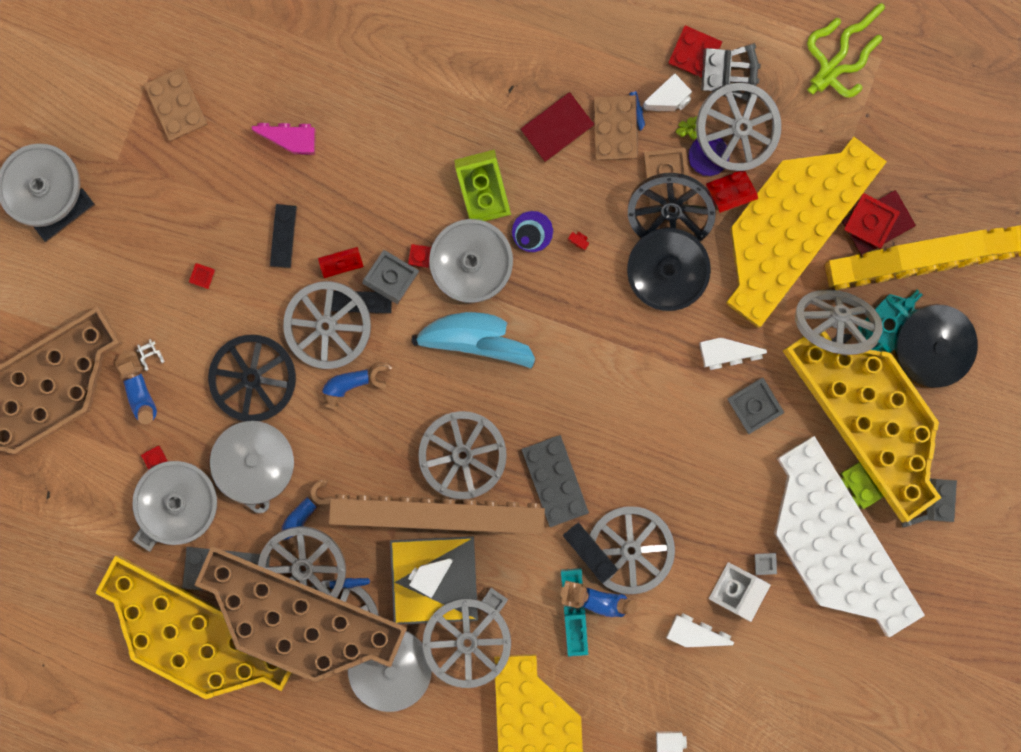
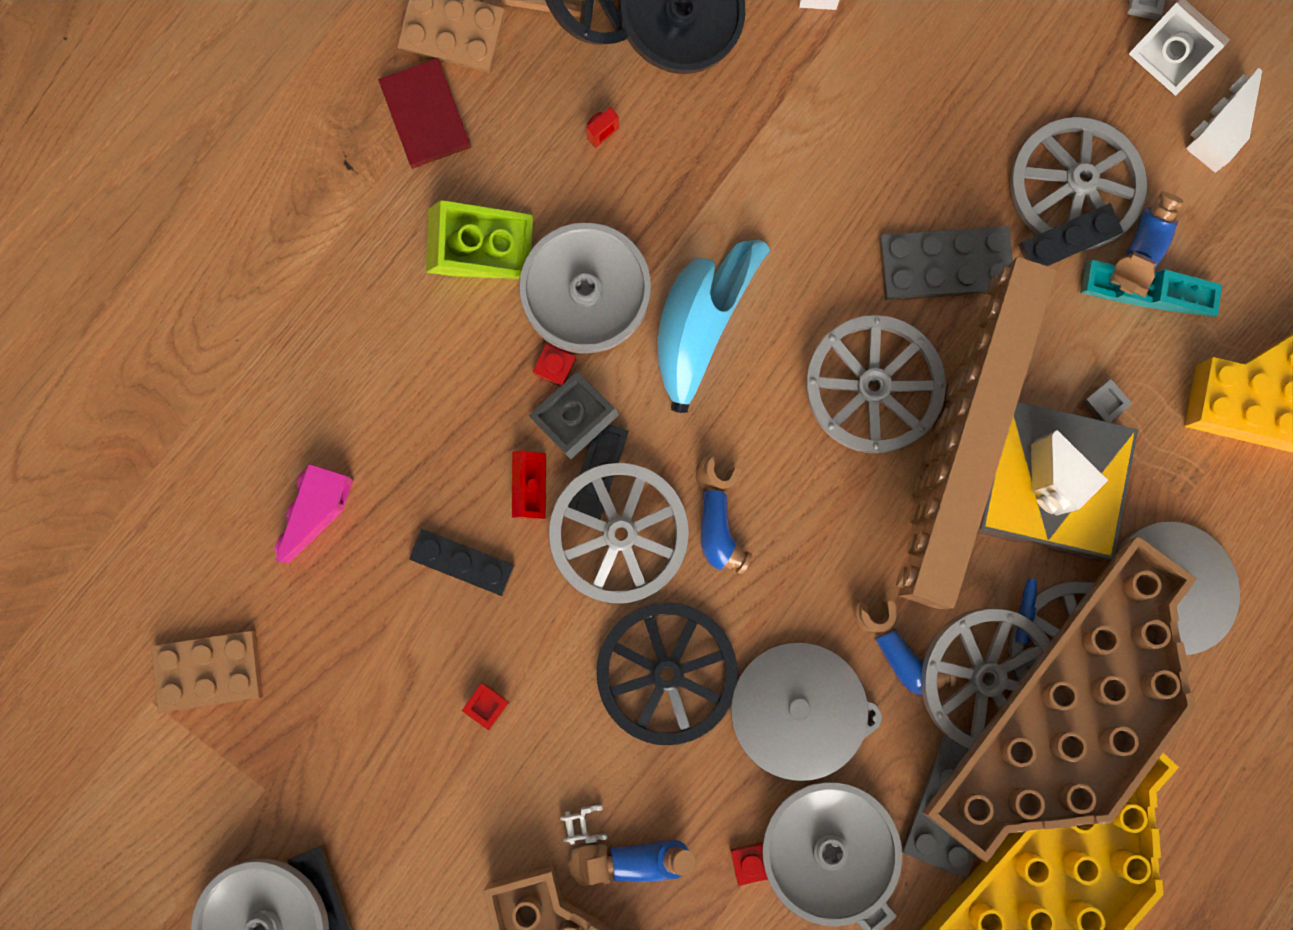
camera: 75 degrees left, 5 degrees down
(459, 643) = (1178, 451): light grey wheel -> none
(532, 231) = (567, 191): tile -> none

